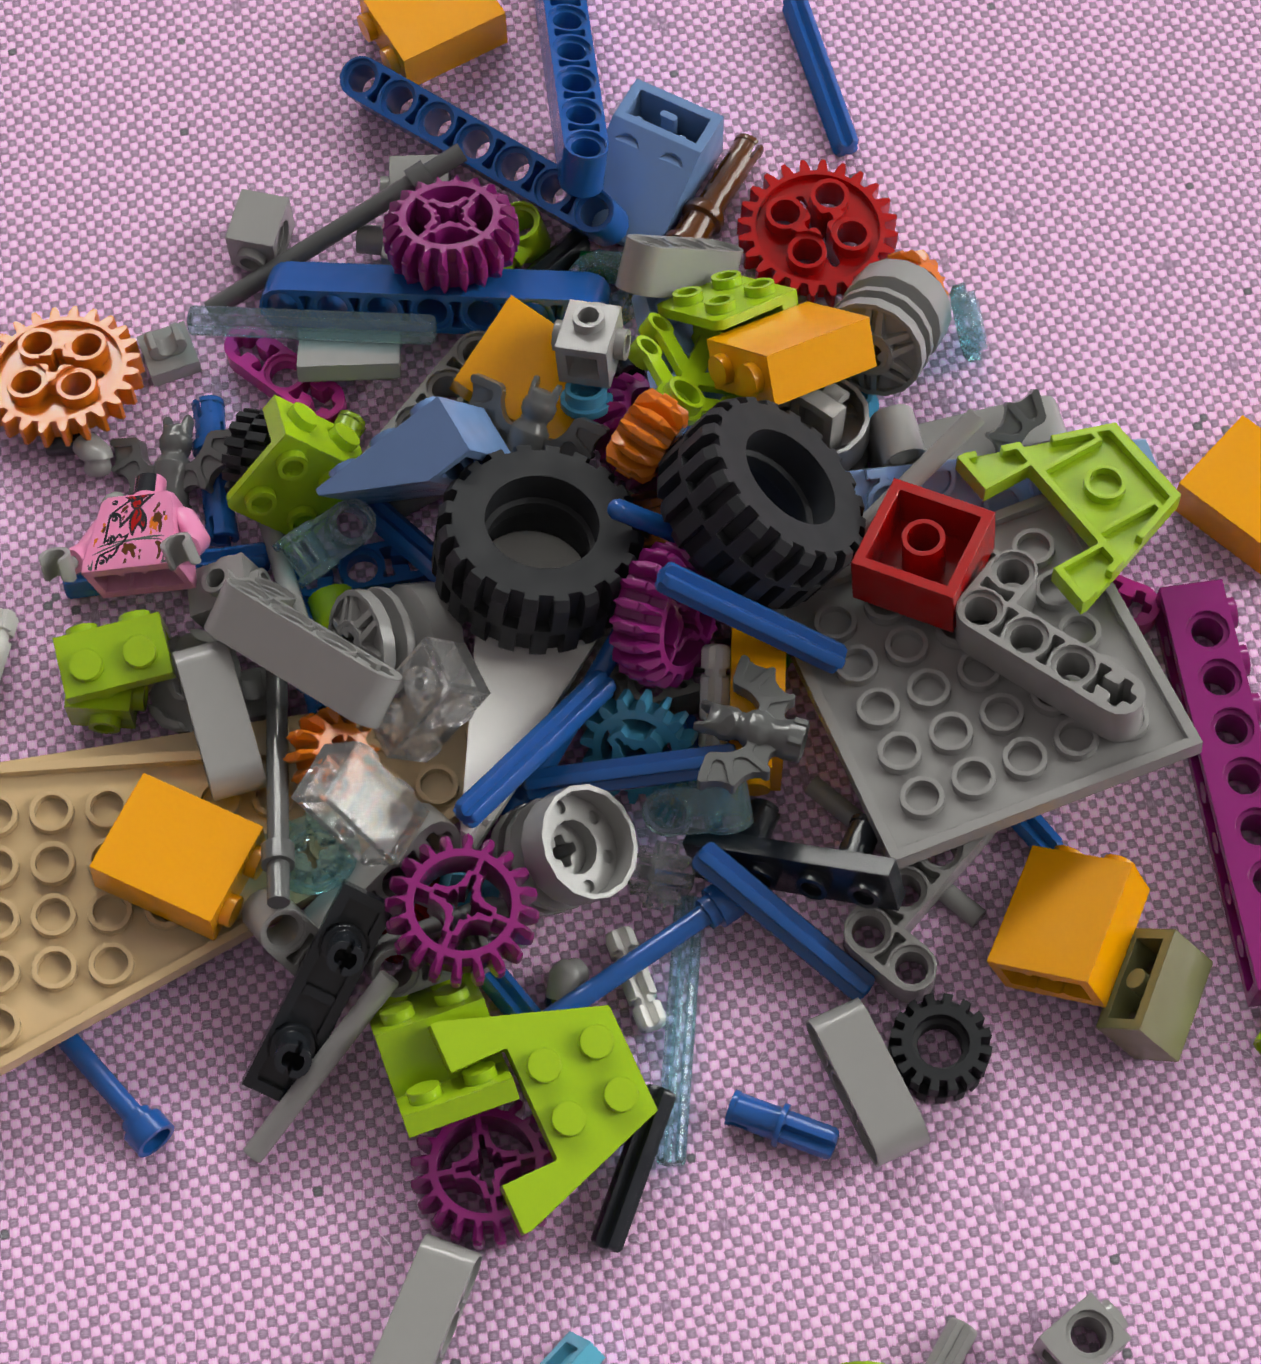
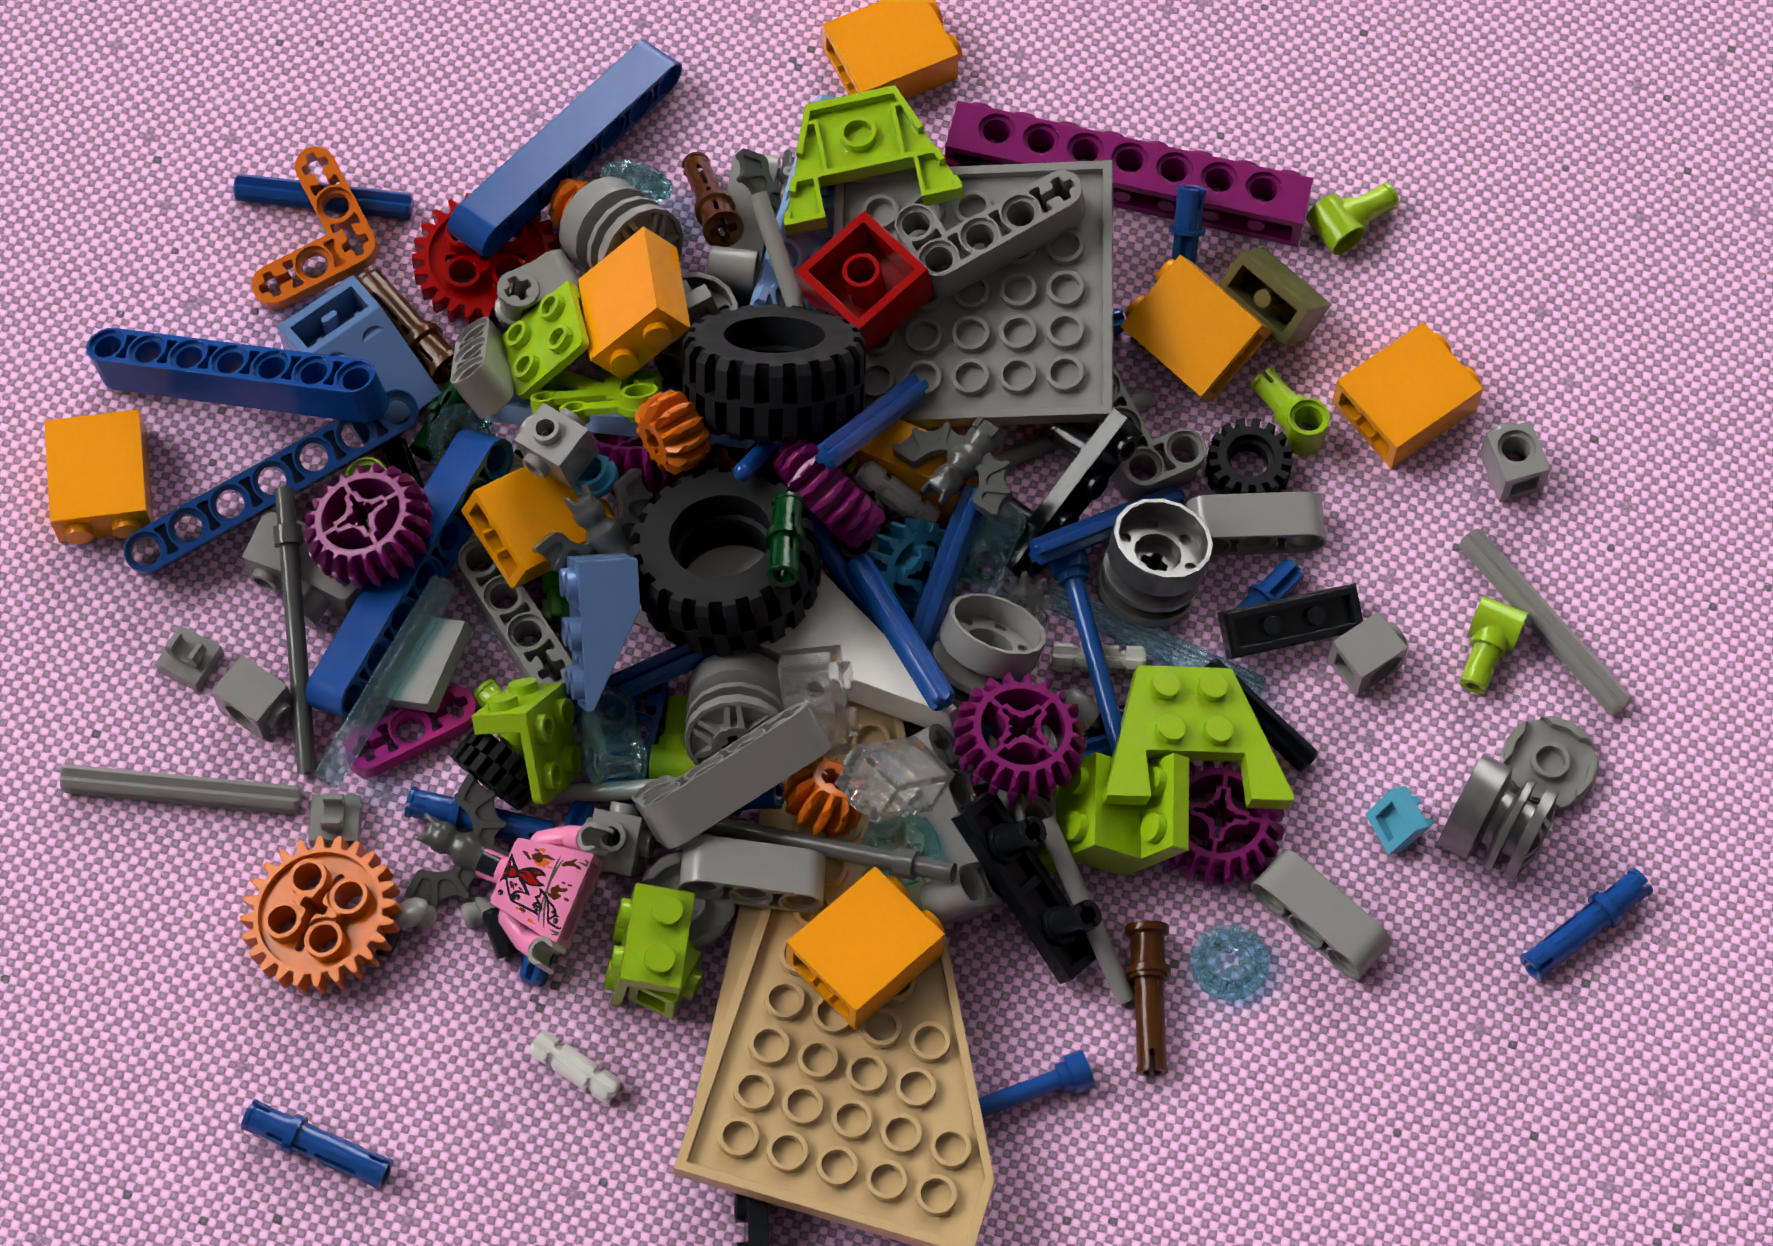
camera: 70 degrees left, 0 degrees up
(150, 218) = (181, 789): none -> light grey axle
(284, 1164) = (1148, 974): none -> reddish brown pin
(285, 167) = (189, 658): none -> light grey tile
(346, 1269) = (1229, 983): none -> clear light blue gear
(516, 579) = (785, 539): none -> dark green pin
(761, 1162) = (1290, 621): none -> black tile
(761, 1262) = (1368, 653): none -> light grey brick
(766, 99) = (331, 247): none -> orange beam
(776, 966) = (1154, 562): none -> flat silver wheel
(793, 268) = (531, 284): none -> light grey piece
(966, 392) = (713, 206): none -> reddish brown pin
(970, 243) = (564, 148): none -> beam
(1025, 1069) = (1293, 410): none -> lime pin
(1111, 1191) = (1408, 394): none -> light orange brick
(1192, 870) = (1188, 221): none -> blue axle

